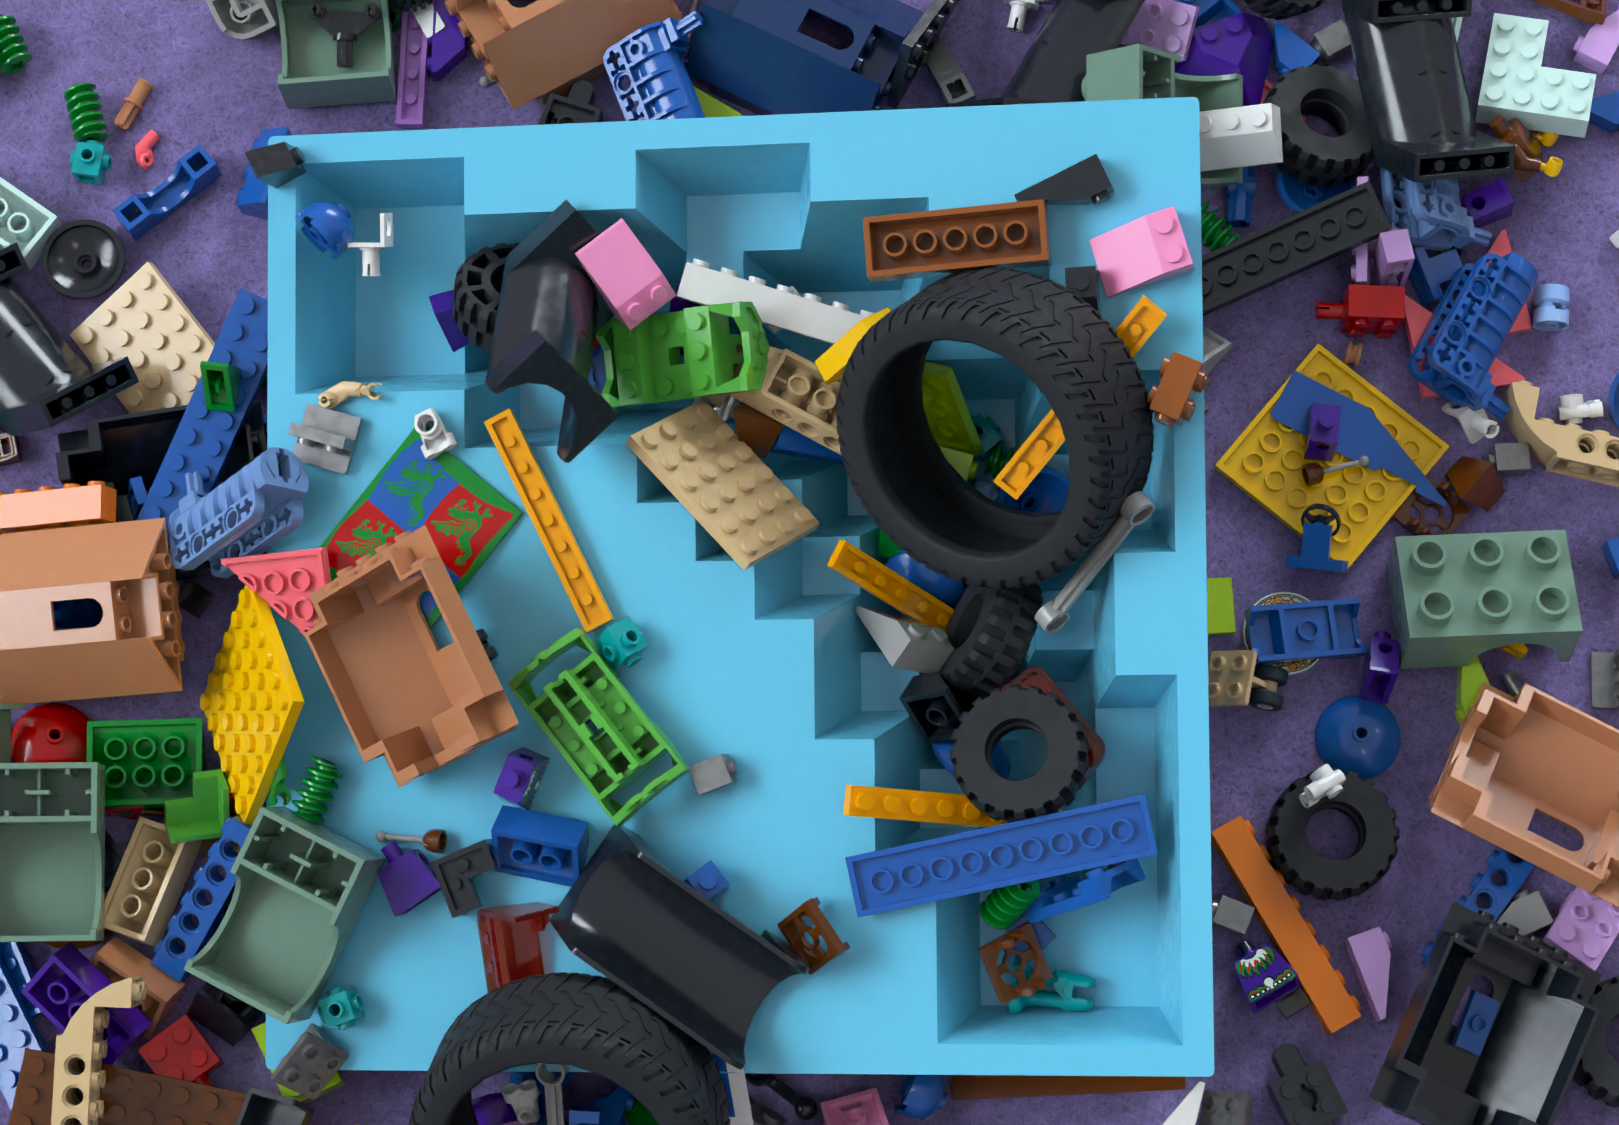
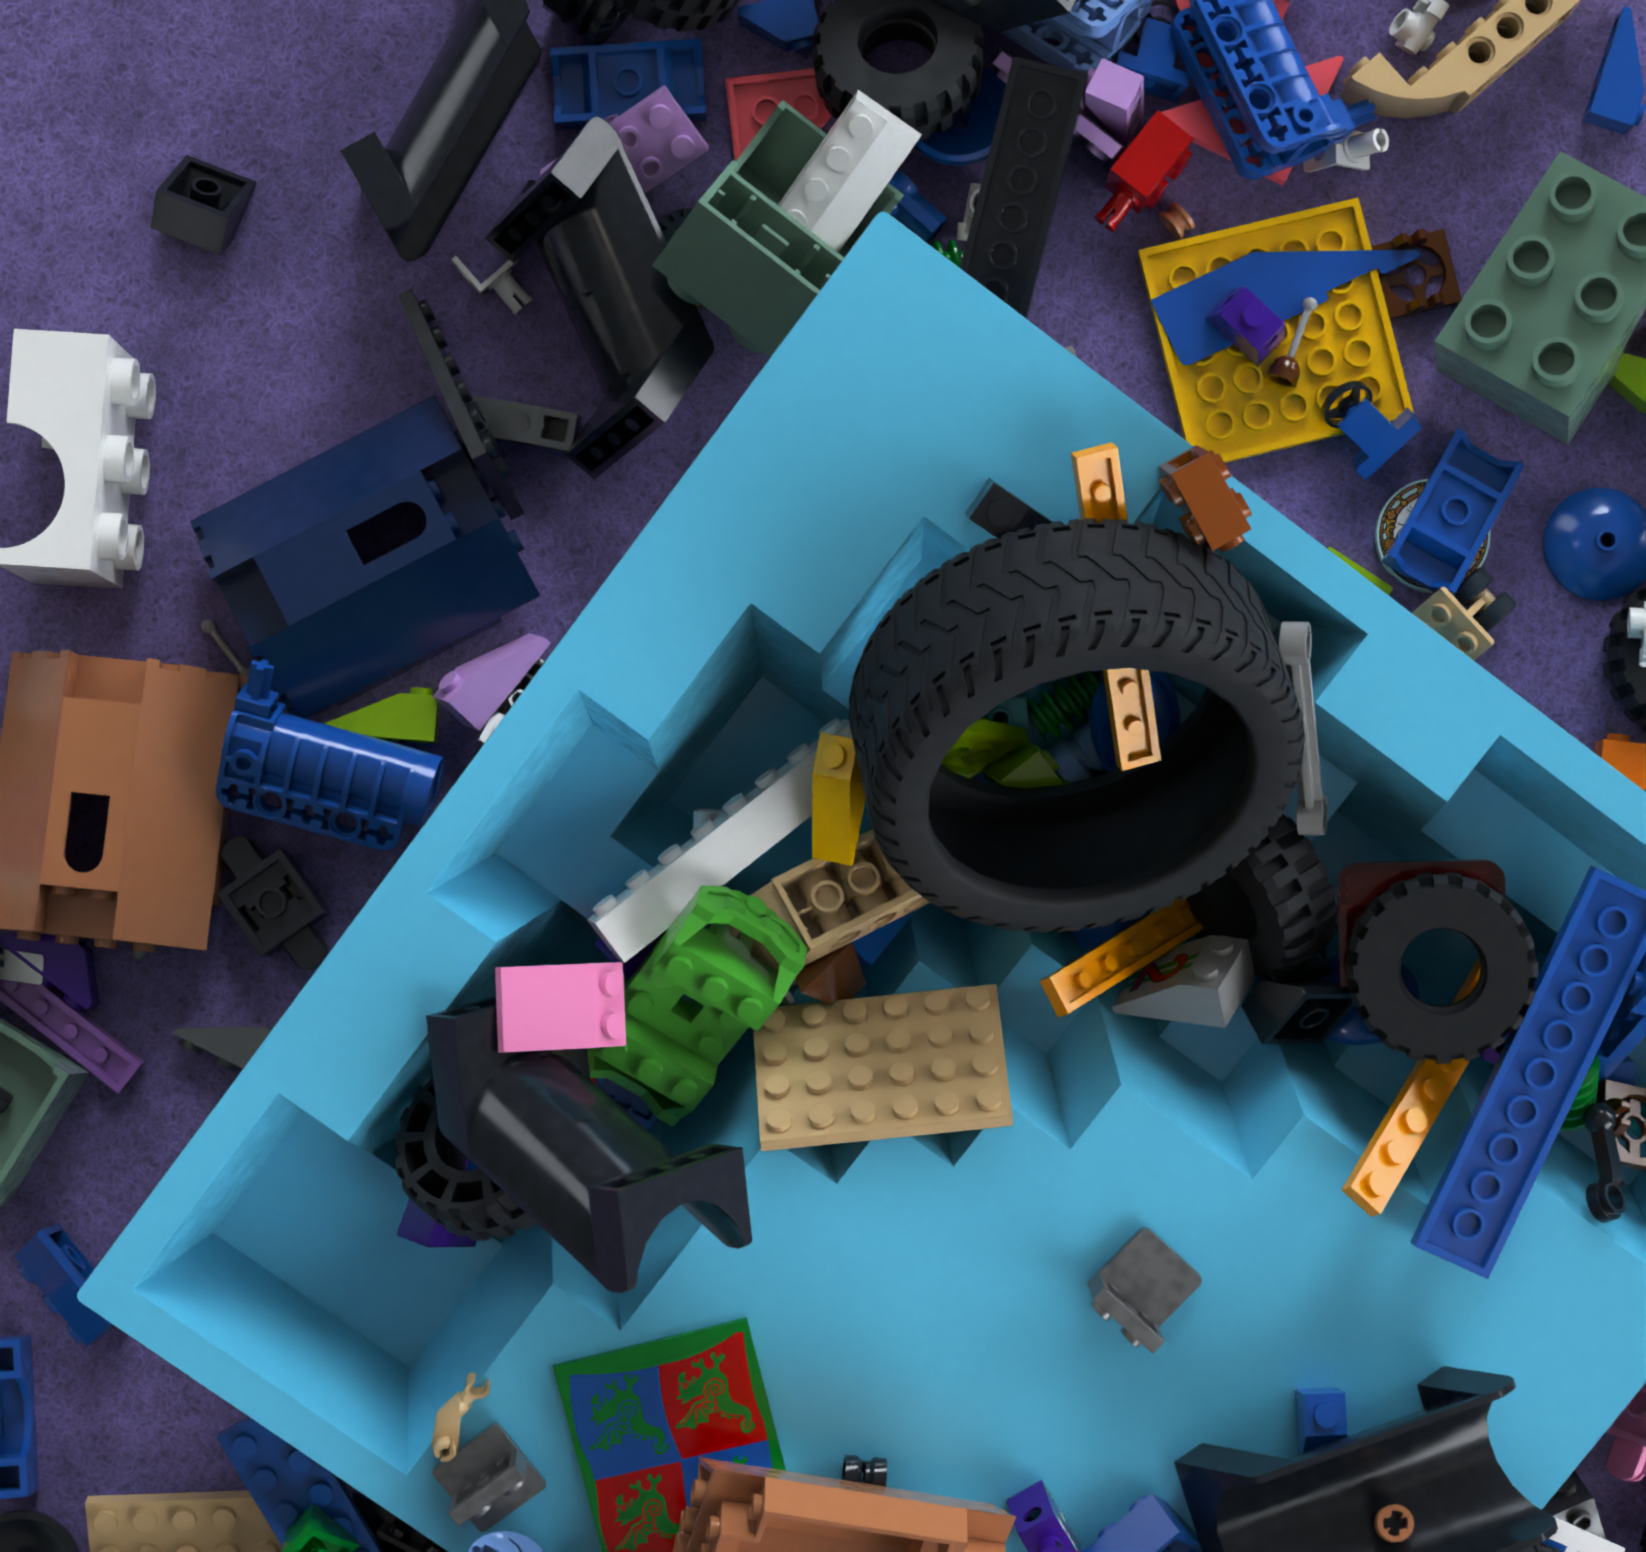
camera: 55 degrees left, 10 degrees up
(276, 163) = (121, 1318): black slope -> none
(327, 227) = (238, 1304): blue cylinder -> none
(371, 250) = (301, 1270): white bracket -> none
(437, 439) = (589, 1362): white plate -> none
(549, 520) = (791, 1299): light orange plate -> none
(597, 695) = (1096, 1405): bright green piece -> none
(622, 643) = (988, 1317): teal brick -> none
(675, 963) = (1386, 1512): none -> nougat bush
(705, 722) = (1142, 1287): none -> flat silver bracket
(714, 773) = (1207, 1319): flat silver brick -> none
(794, 928) = (1447, 1353): reddish brown piece -> none
(956, 240) = (836, 614): dark orange brick -> none
(1001, 929) = (1605, 1196): none -> black piece
(1076, 185) = (876, 431): black slope -> none
(1142, 252) = (1013, 414): bright pink slope -> none
(1232, 46) = (735, 91): dark purple wedge -> none
(1382, 659) = (1549, 463): dark purple torso -> none
(1476, 481) = (1417, 201): reddish brown slope -> none
(1510, 458) = (1419, 144): flat silver brick -> none

